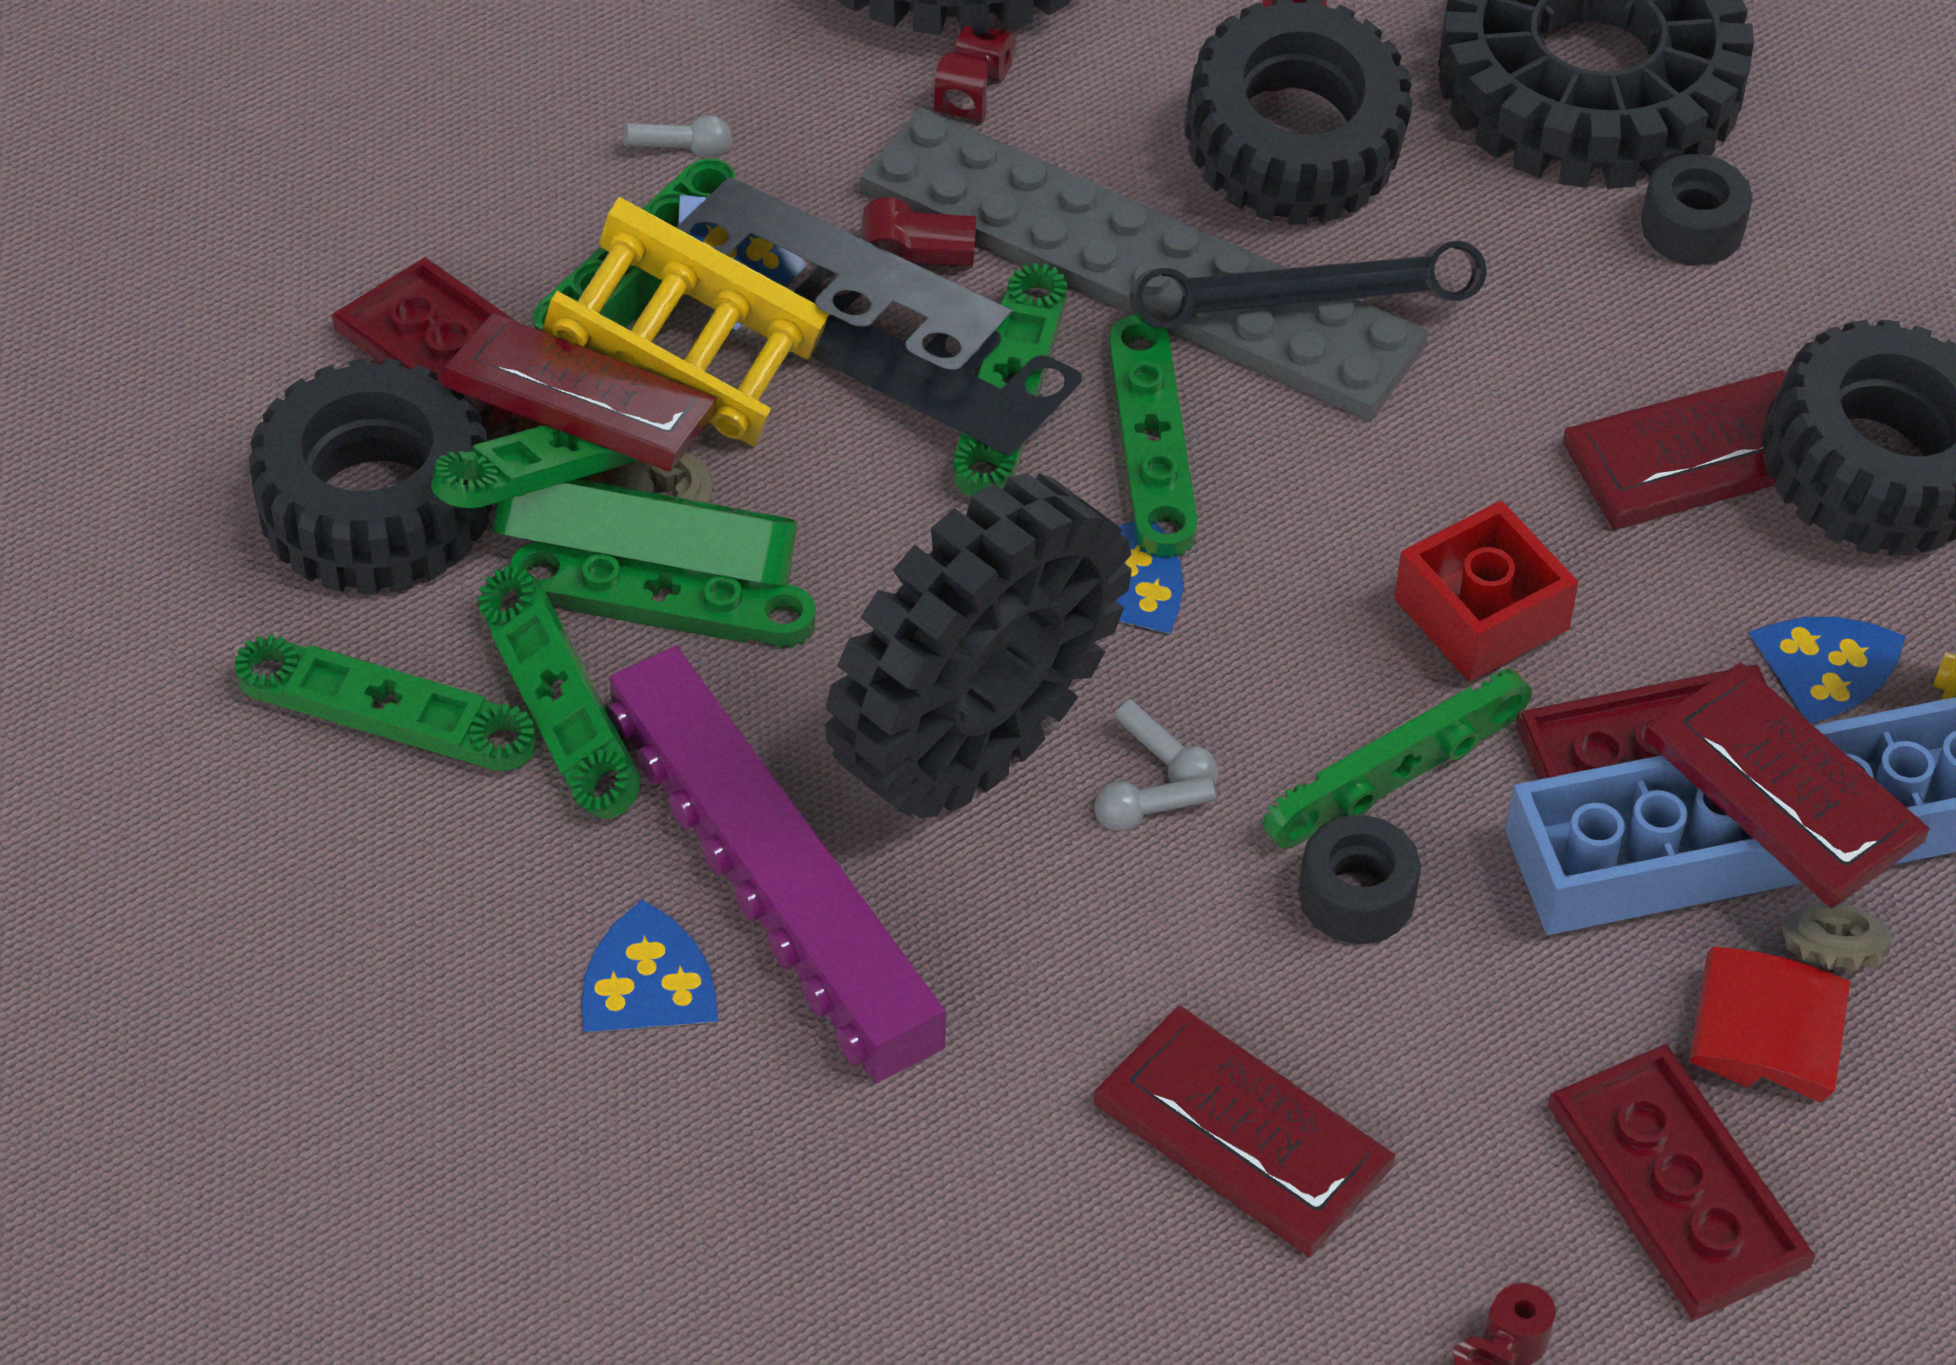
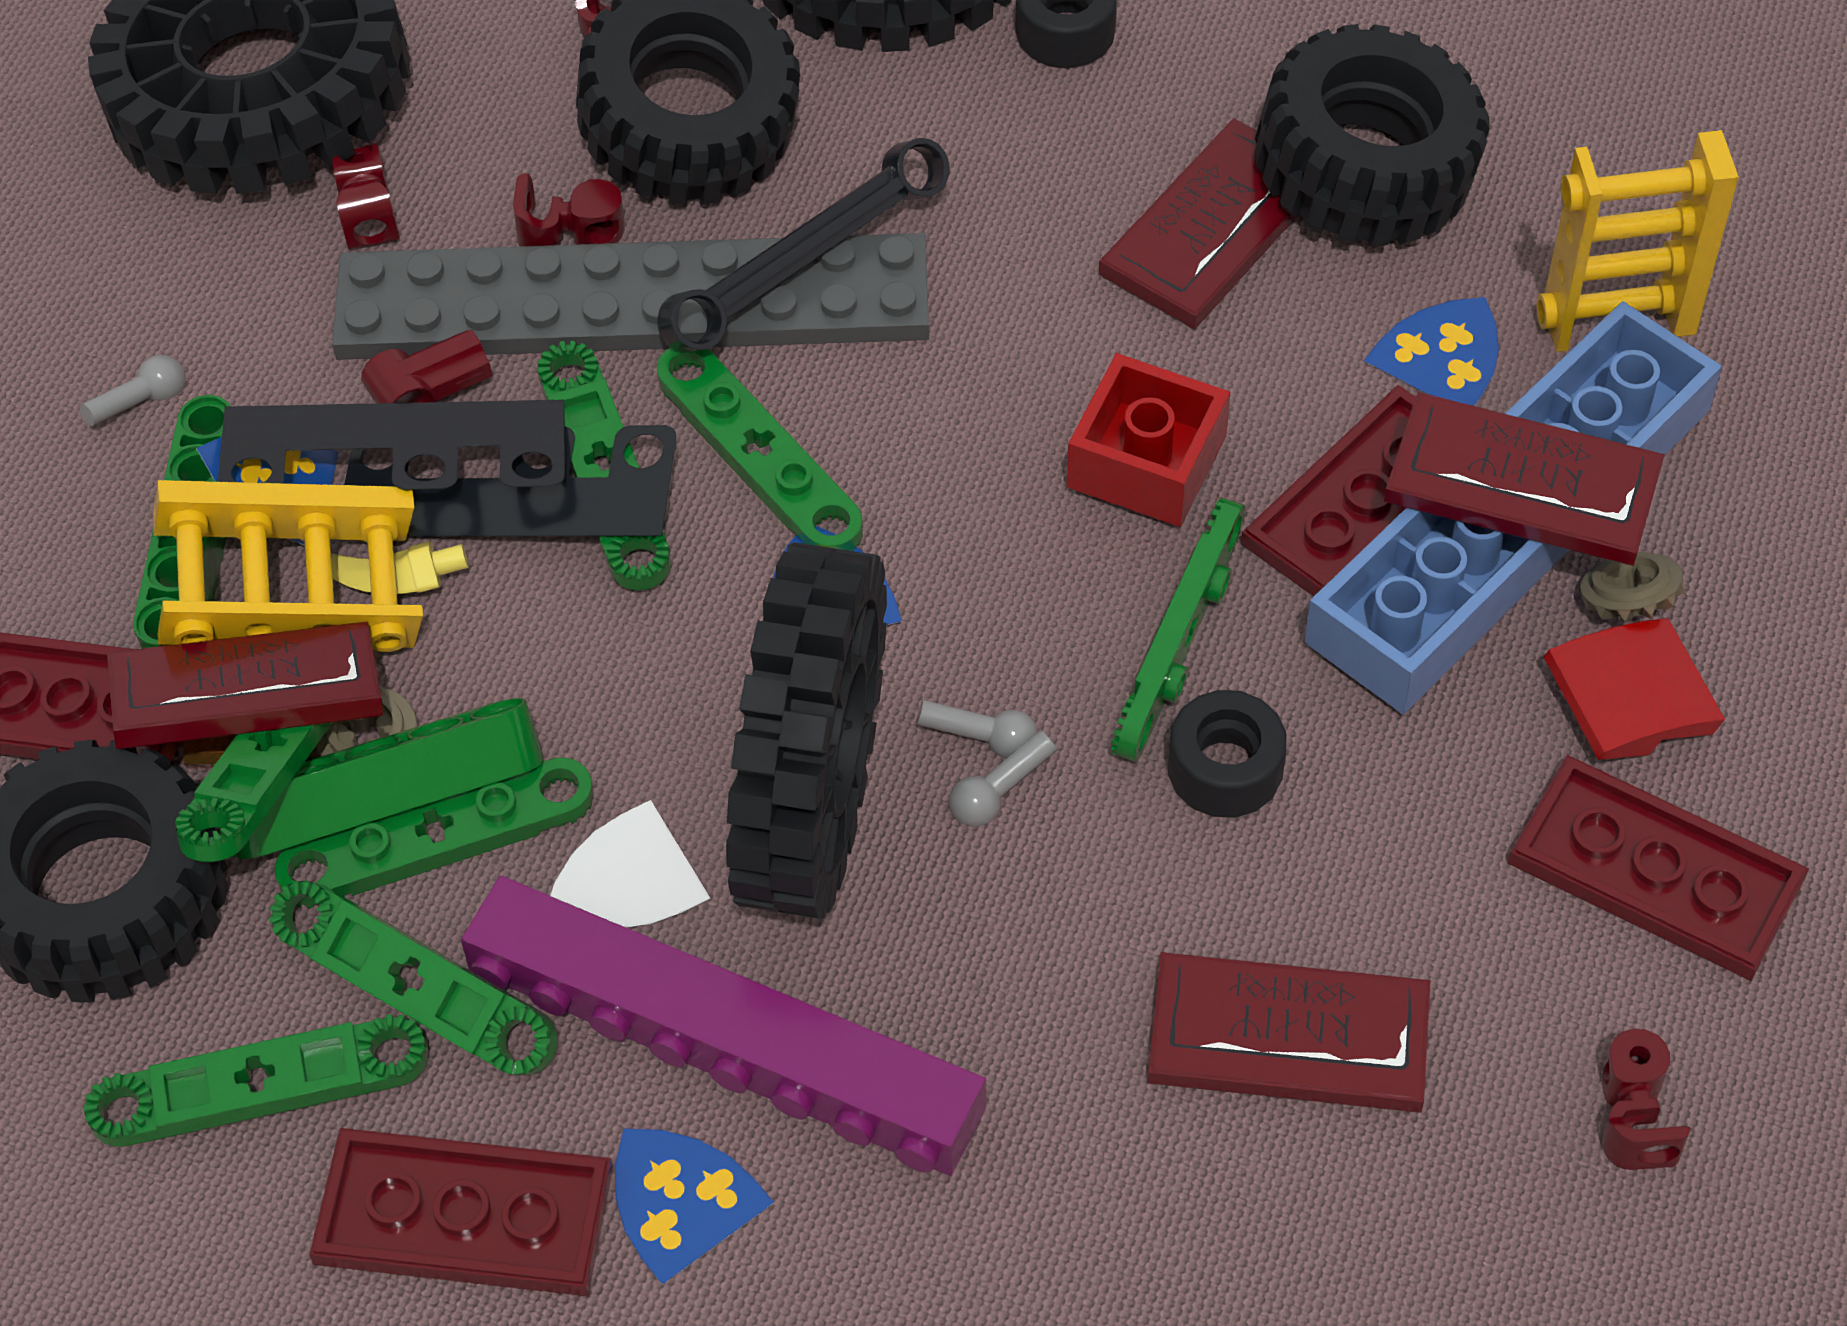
camera: 30 degrees left, 5 degrees up
(470, 889) = (462, 1212): none -> dark red tile
(785, 709) = (630, 872): none -> white sticker
(792, 383) = (415, 568): none -> light yellow bar
(1149, 169) = (589, 204): none -> dark red leg

